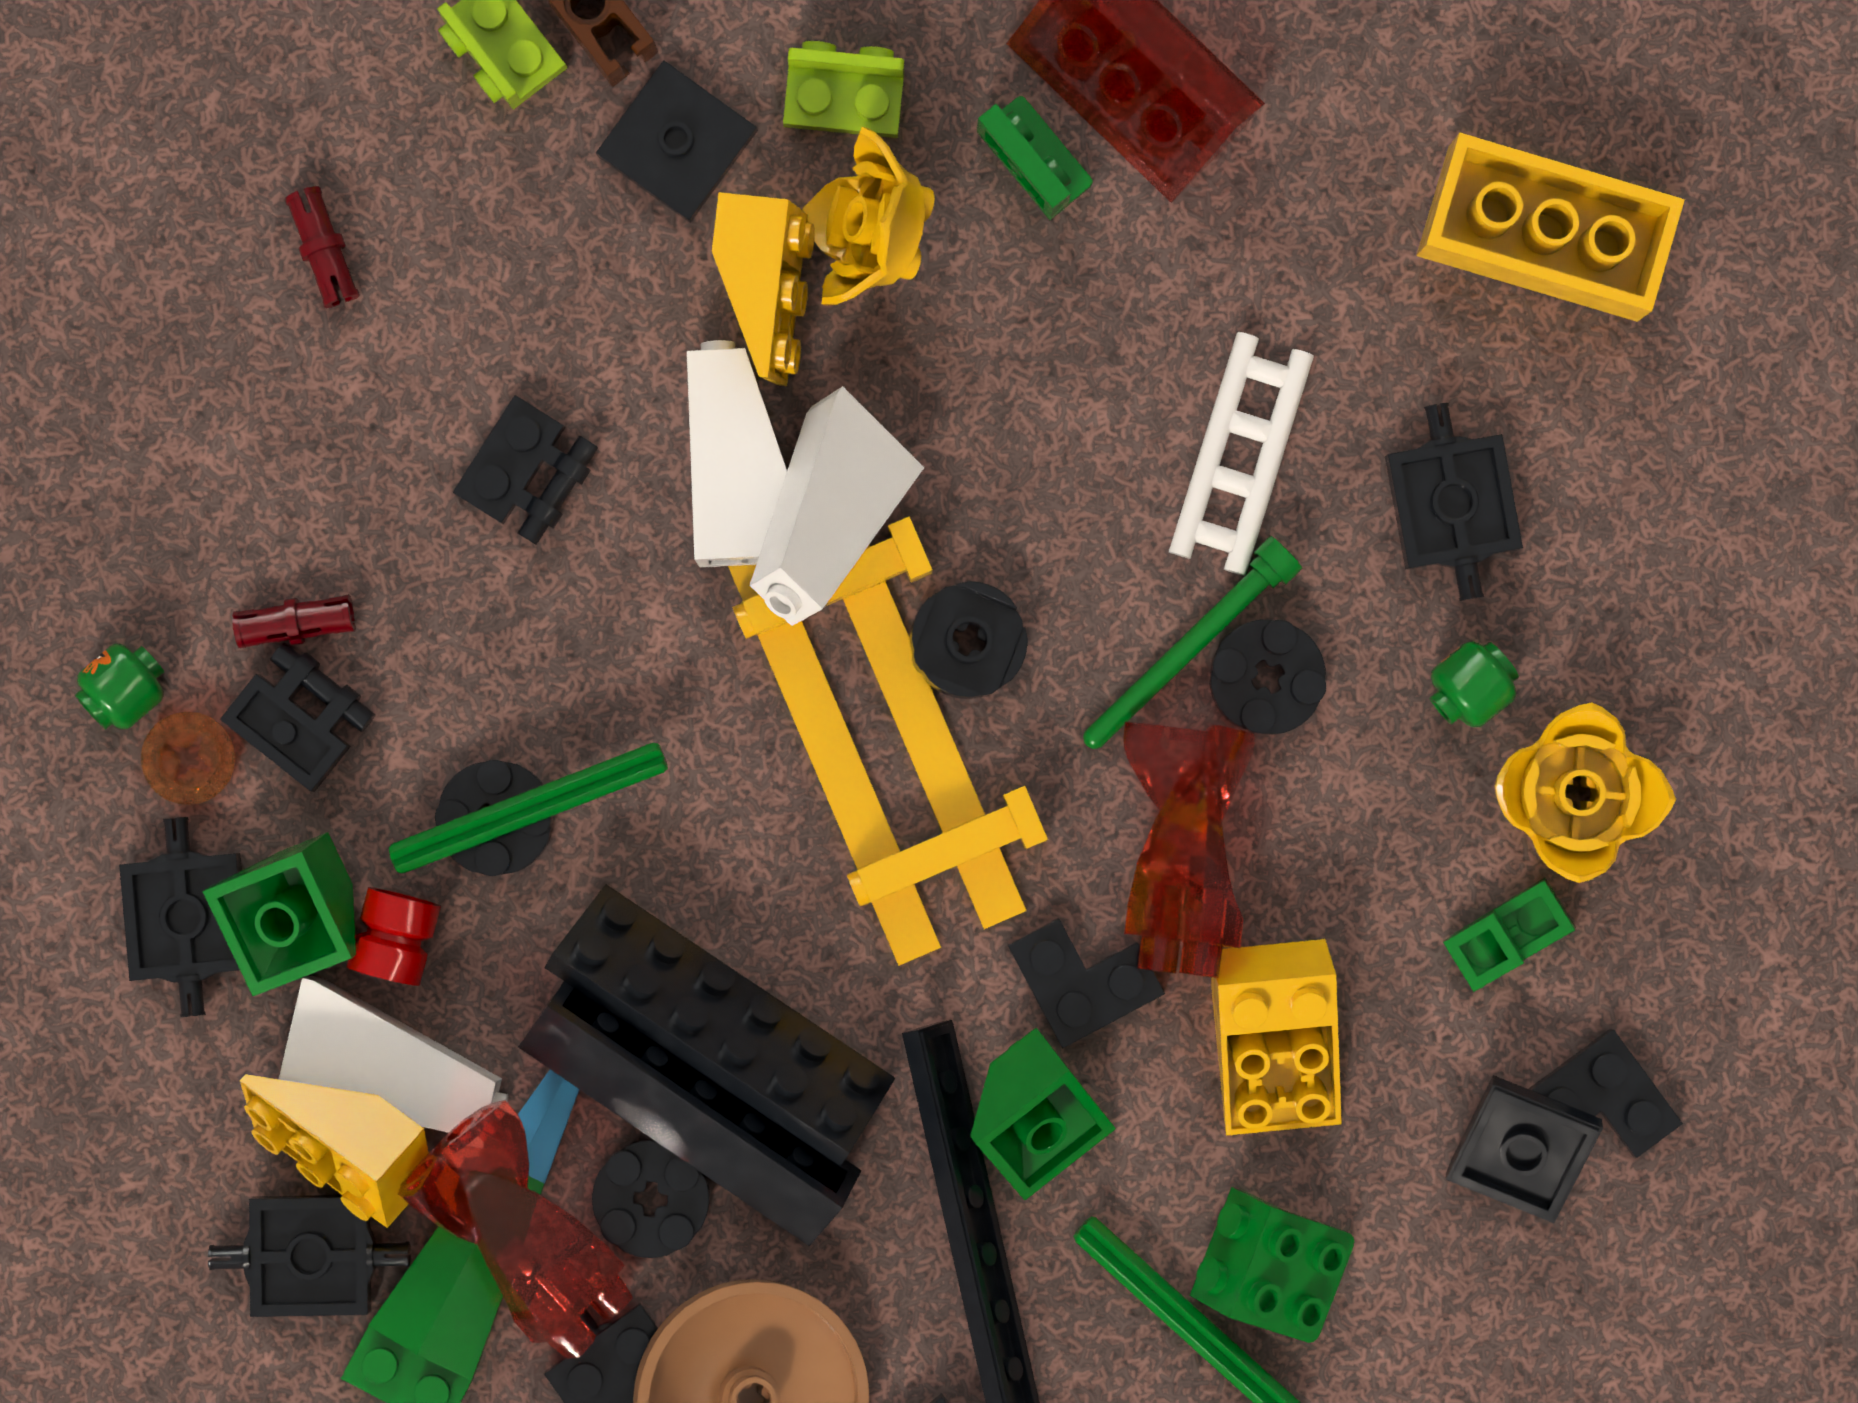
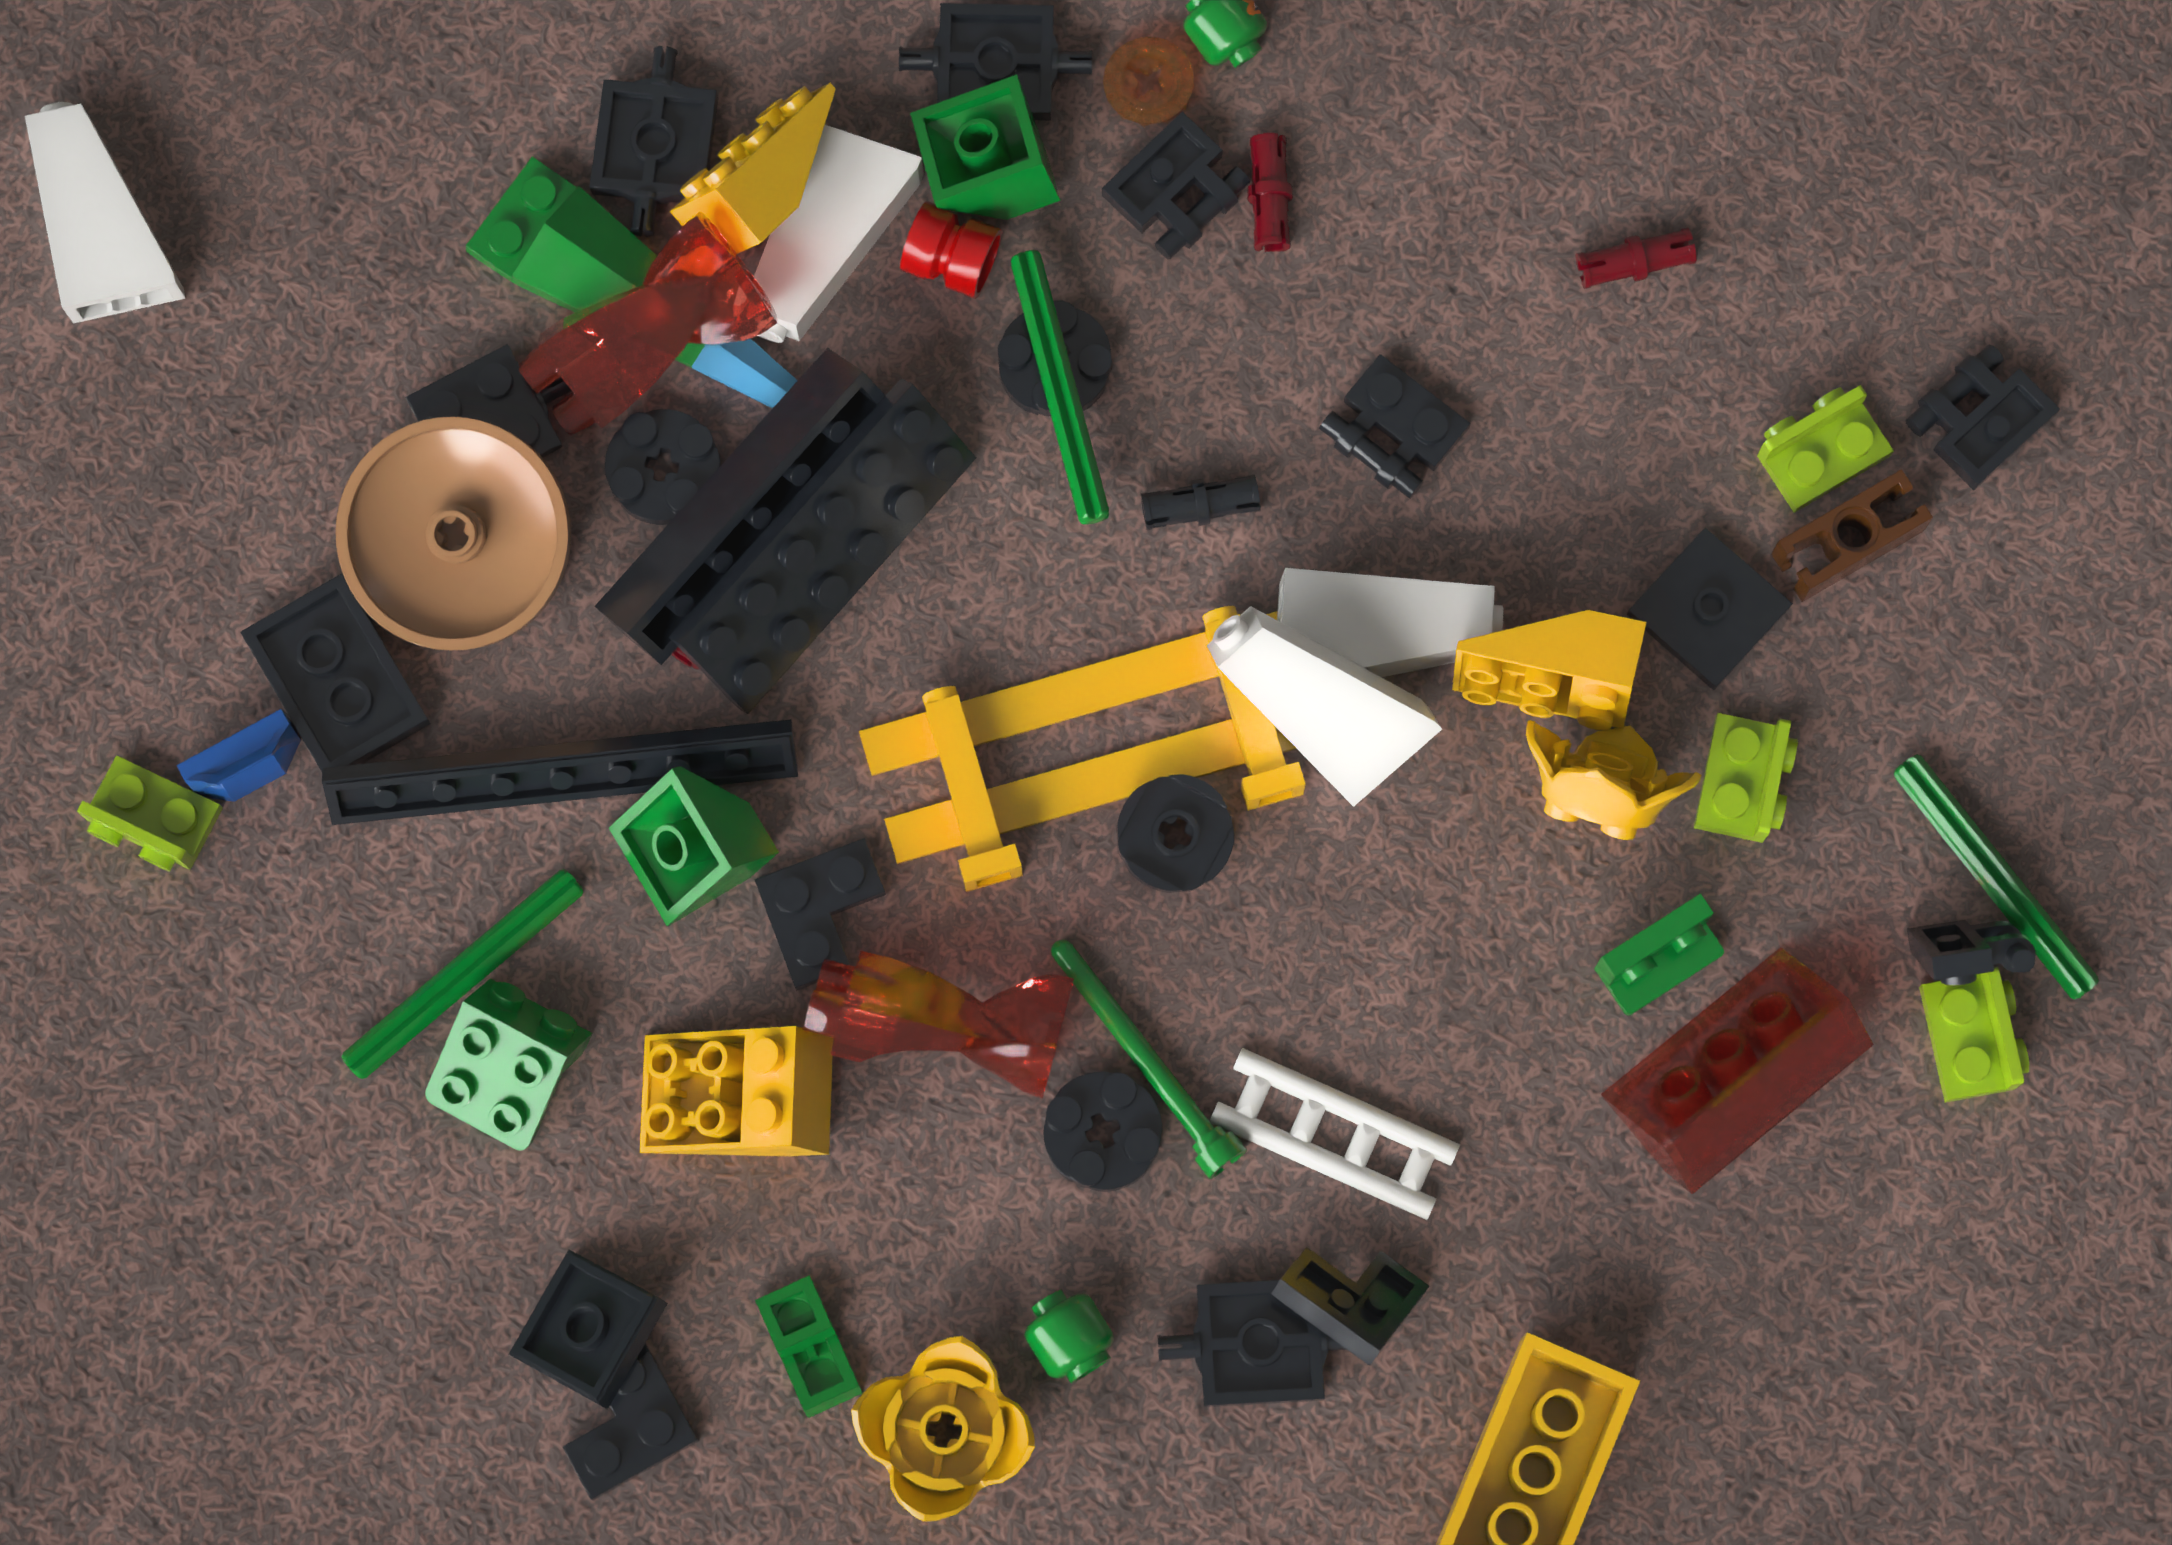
camera: 105 degrees right, 10 degrees down
(626, 654) = (1200, 502): none -> black pin
(1422, 411) = (1352, 1313): none -> black plate

